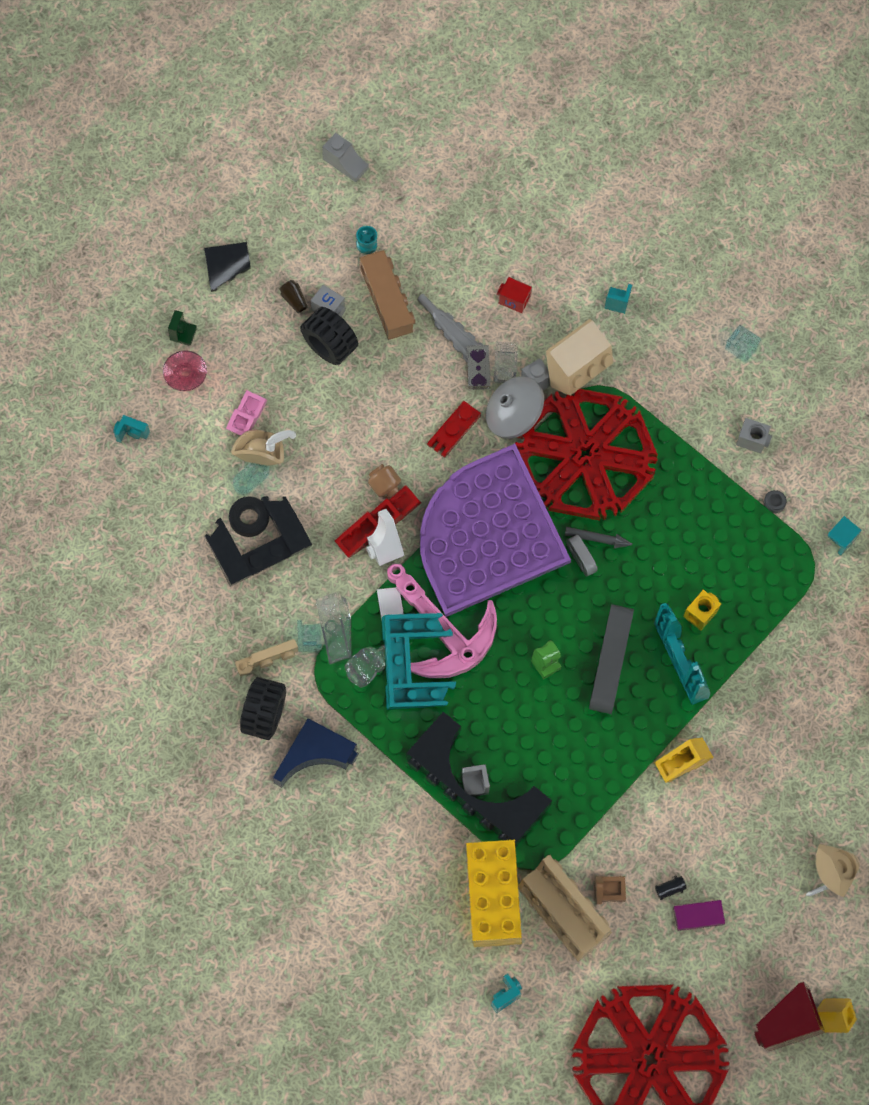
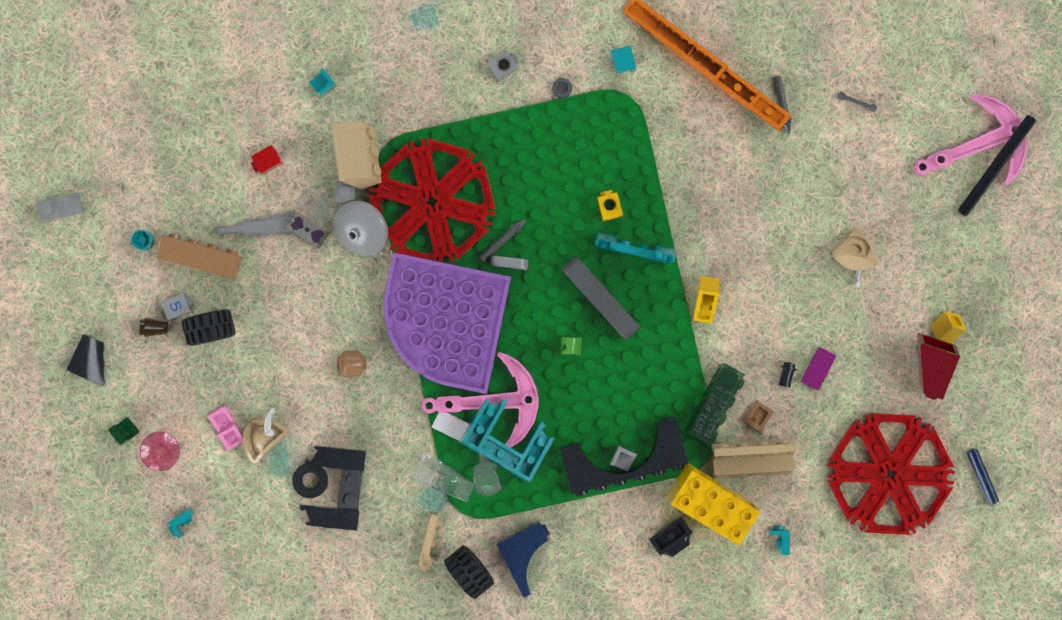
camera: 55 degrees left, 20 degrees up
(356, 536) = (379, 389): red slope -> none
(384, 542) = (400, 398): white arch -> none
(430, 885) = (672, 537): none -> black slope
(454, 428) = (343, 281): red hinge -> none
(590, 834) = (714, 404): none -> clear green brick

